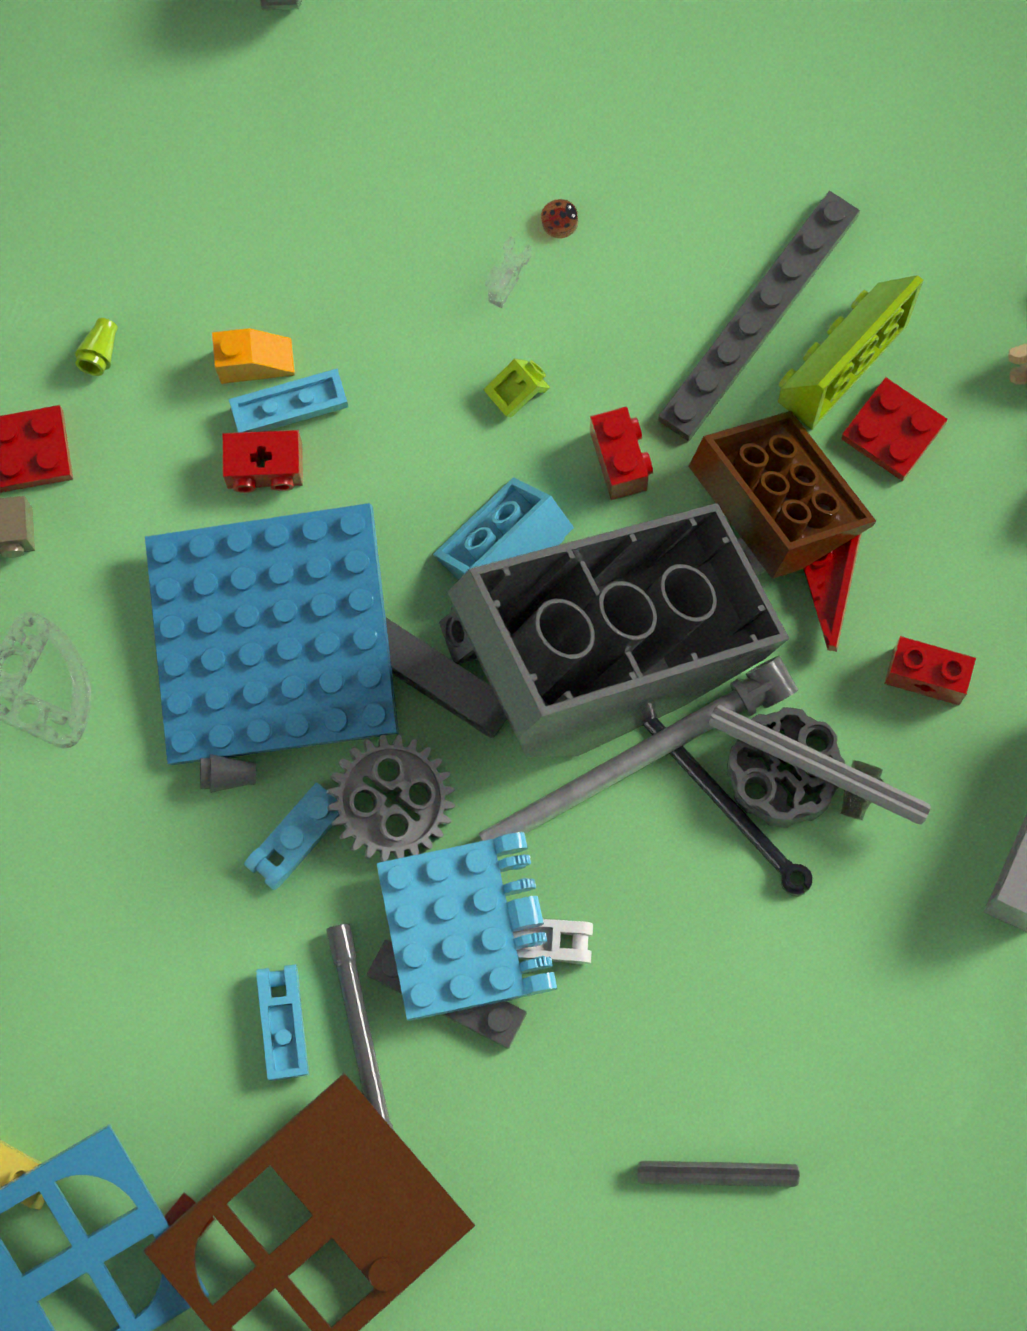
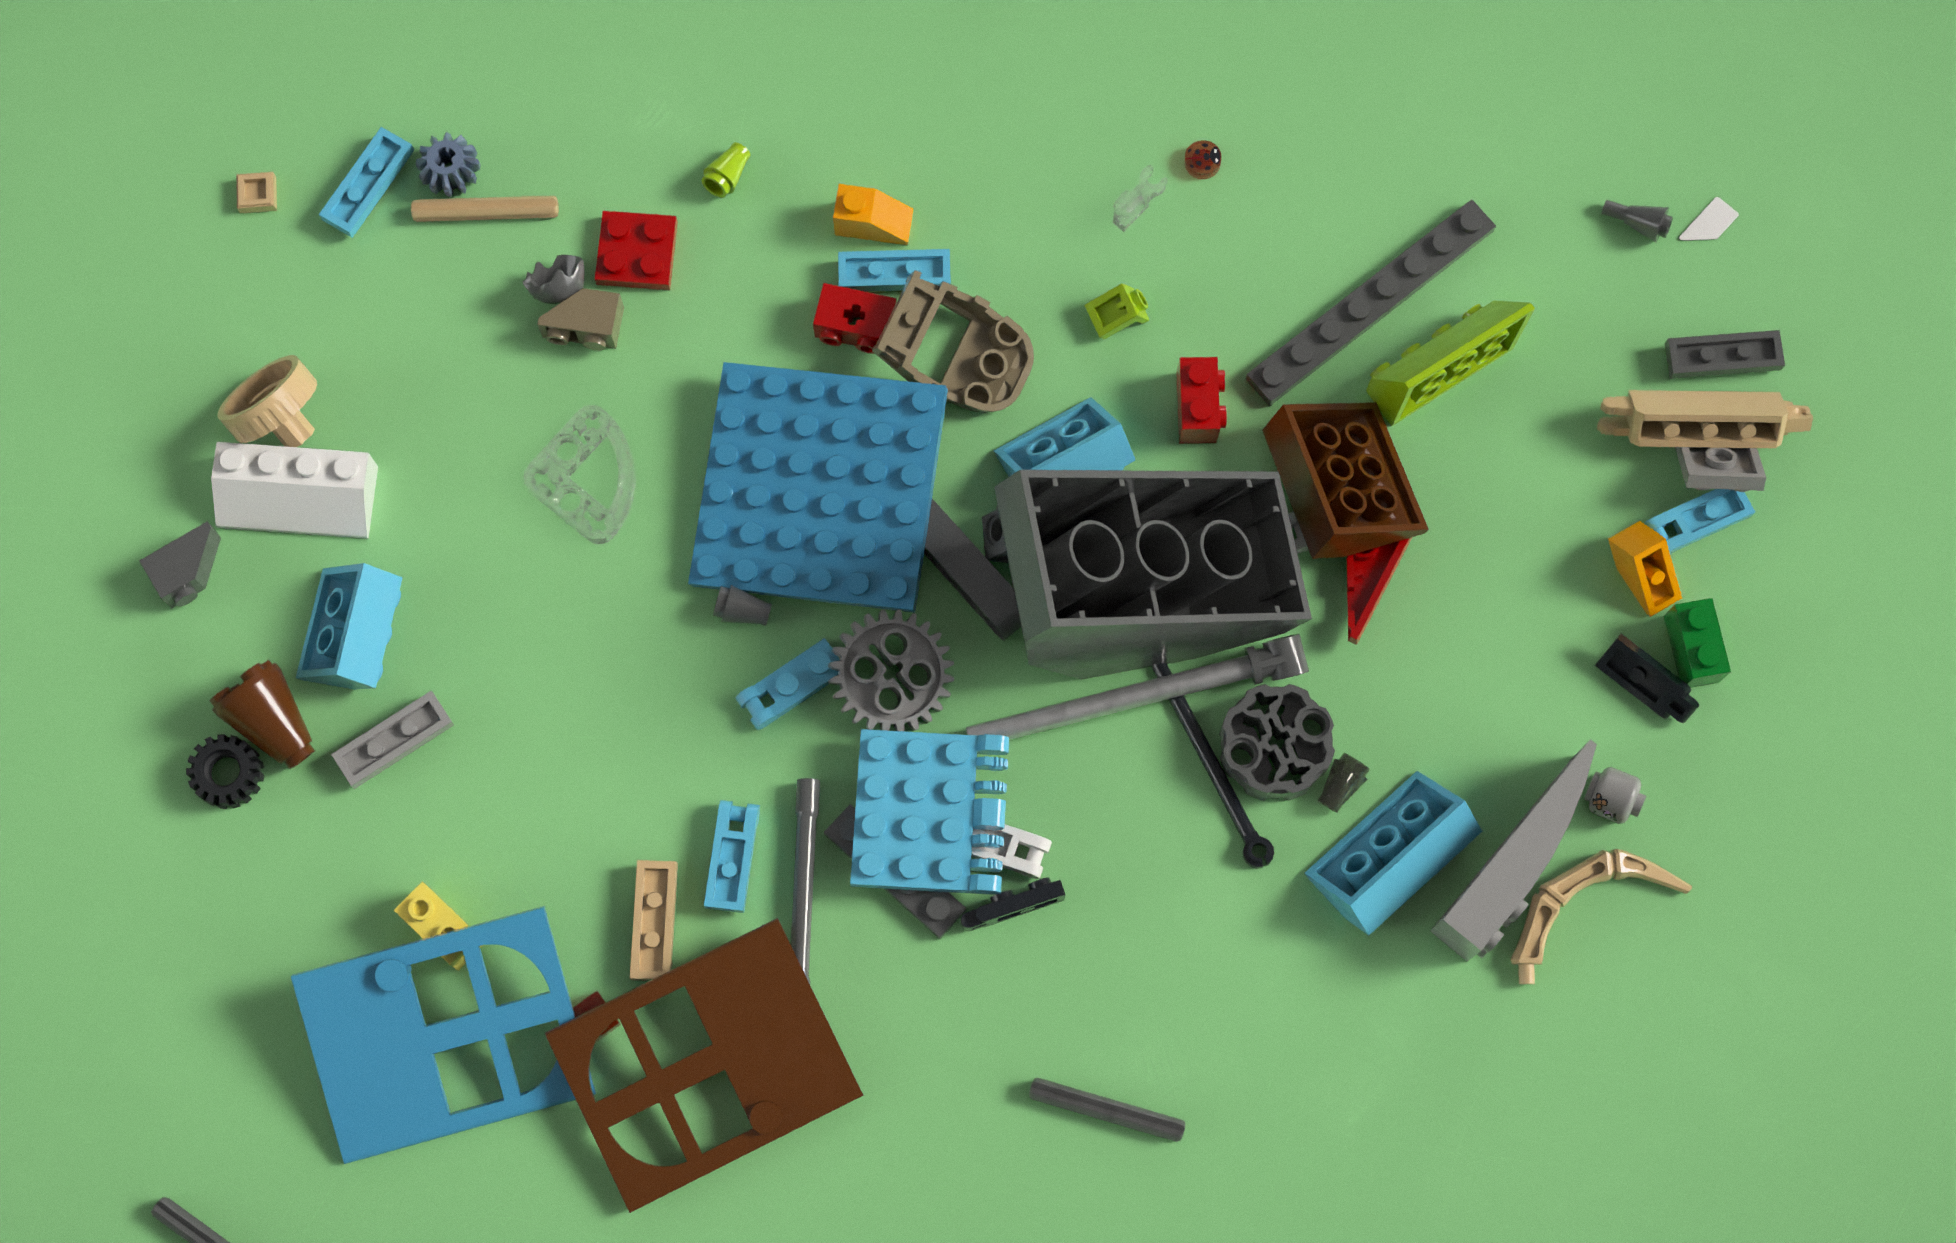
camera: 10 degrees right, 0 degrees up
(221, 1106) = (653, 919): none -> tan plate
(404, 468) = (990, 357): none -> dark tan slope
(568, 998) = (1007, 905): none -> black hinge
(819, 764) = (1309, 747): light grey axle -> none
(894, 429) = (1471, 446): red plate -> none
(920, 865) = (1394, 851): none -> medium azure slope
(930, 670) = (1441, 686): red brick -> none
(1002, 167) = (1647, 220): none -> dark grey cone

